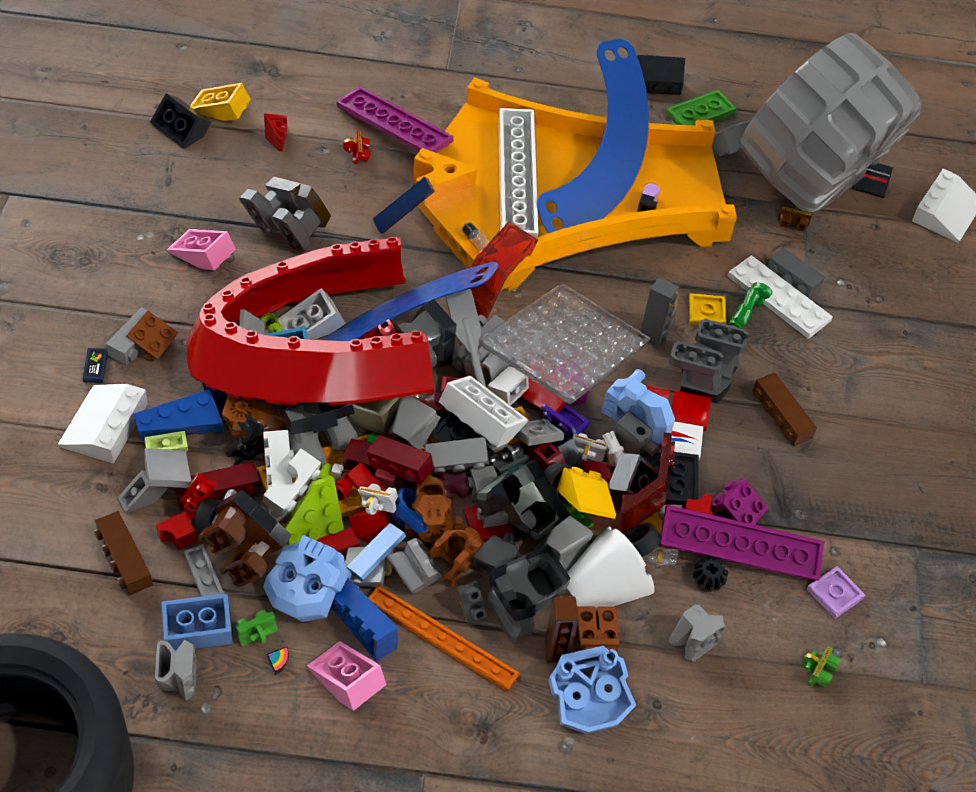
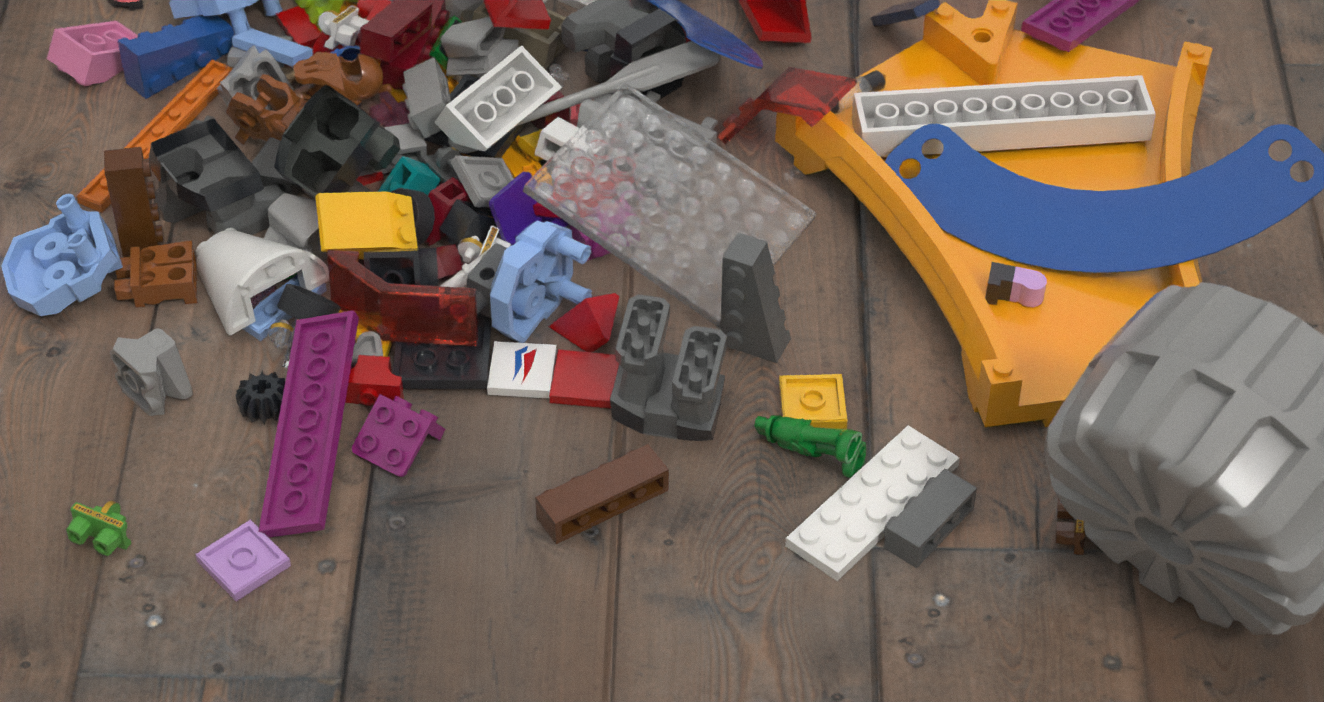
camera: 90 degrees right, 5 degrees down
(875, 180) = (1240, 656): black slope -> none

